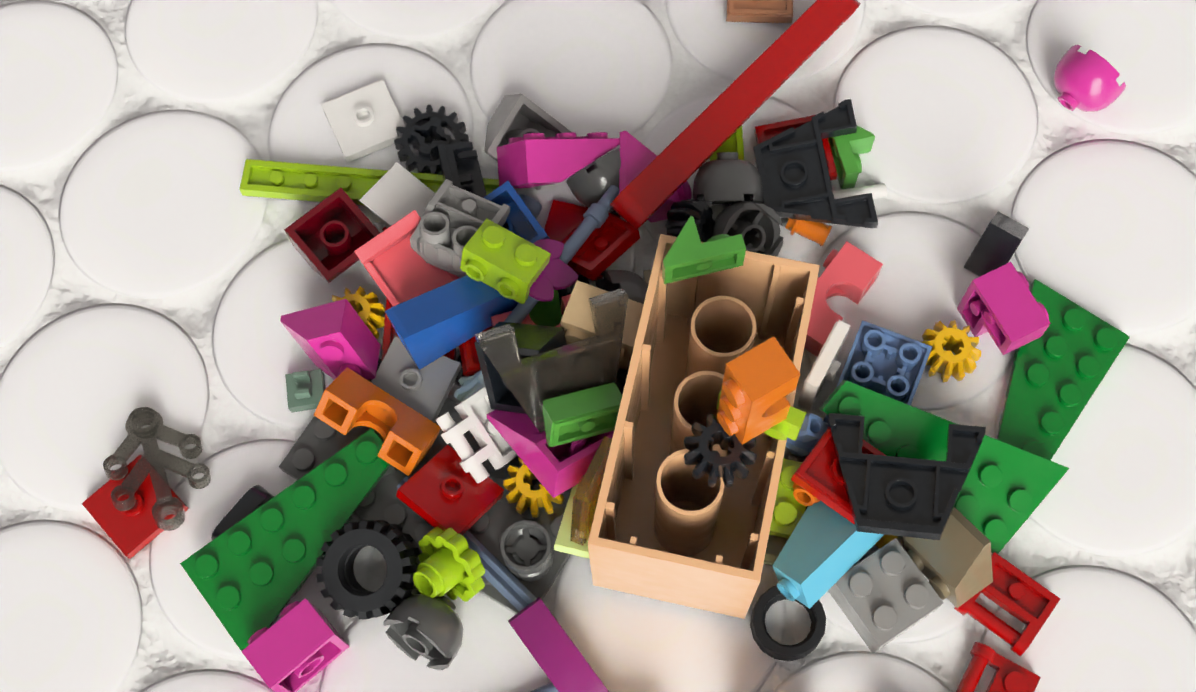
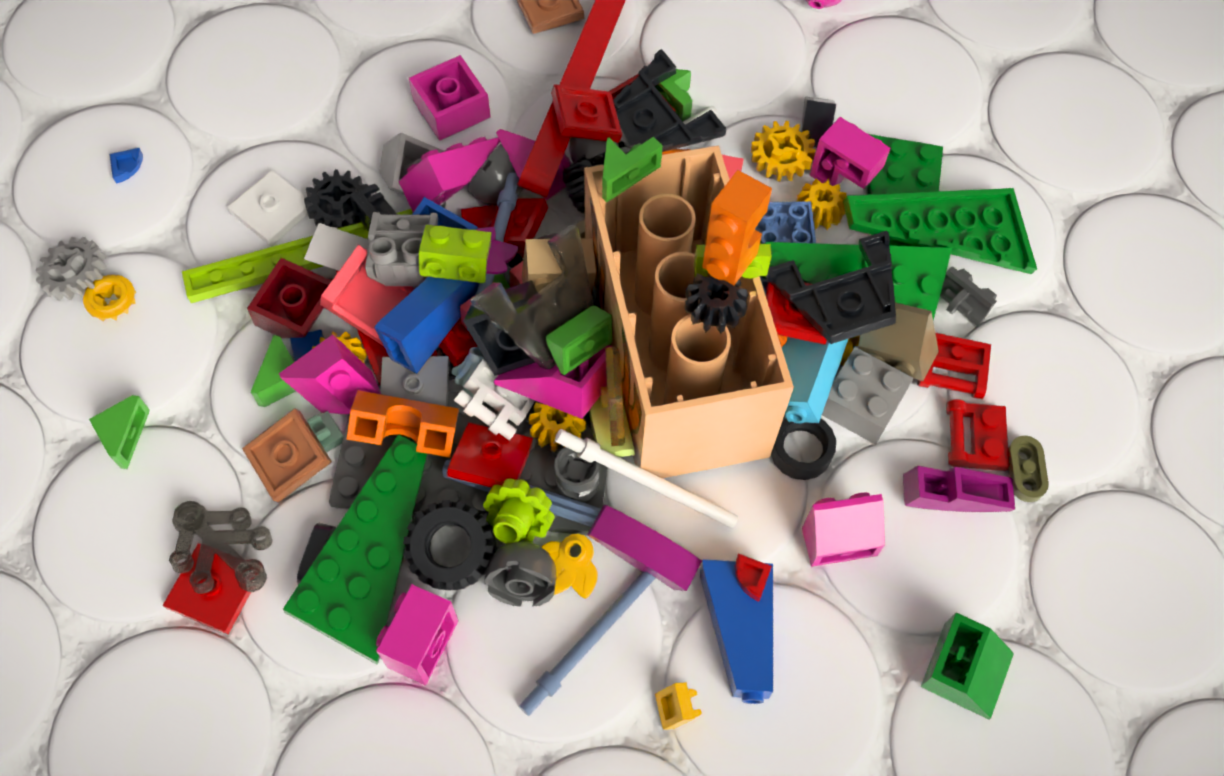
camera: 30 degrees left, 5 degrees down
(119, 304) = (121, 428): none -> bright green slope
(145, 113) = (71, 268): none -> light grey gear
(169, 145) = (104, 288): none -> yellow gear
(245, 16) = (125, 164): none -> blue tile
(260, 399) = (286, 455): none -> nougat plate
(292, 297) = (268, 384): none -> bright green slope
(336, 287) = (301, 346): none -> blue tile
(479, 645) = (570, 570): none -> yellow plate
(543, 539) = (591, 451): none -> white bar
(598, 67) = (450, 97): none -> dark pink brick
(721, 151) = (586, 113): none -> red plate
(936, 284) = (785, 151): none -> yellow gear
(1060, 530) = (966, 296): none -> dark grey hips
(1104, 443) = (974, 223): none -> green wing

